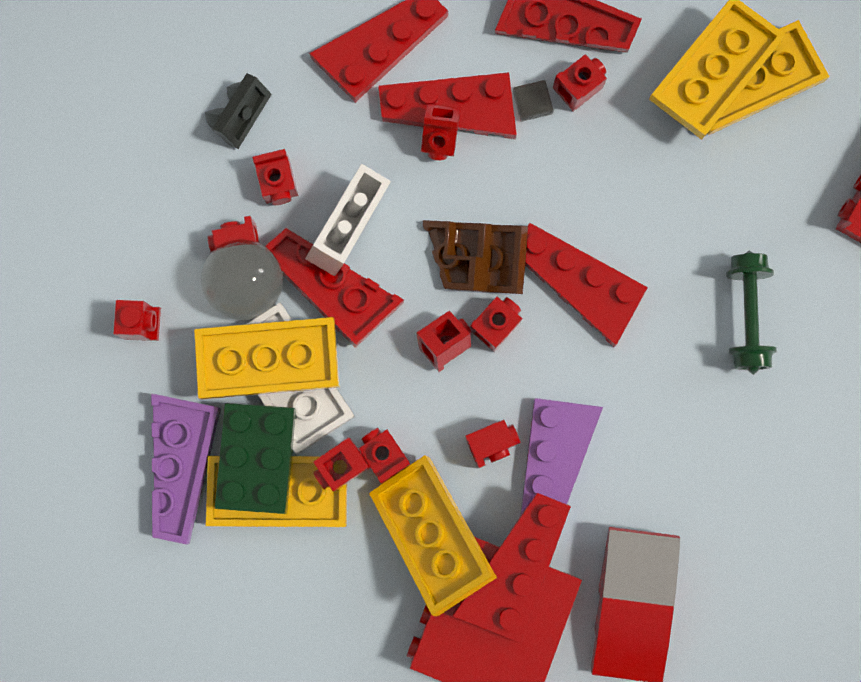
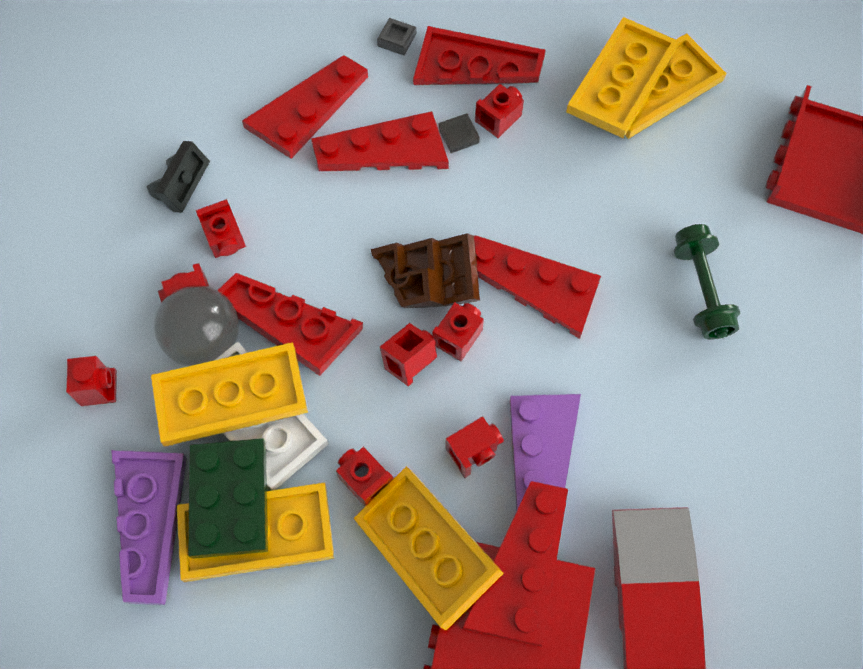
camera: 10 degrees left, 15 degrees down
(348, 220) = (295, 253): white brick -> none
(350, 455) = (319, 474): red brick -> none
(441, 122) = (375, 155): red brick -> none

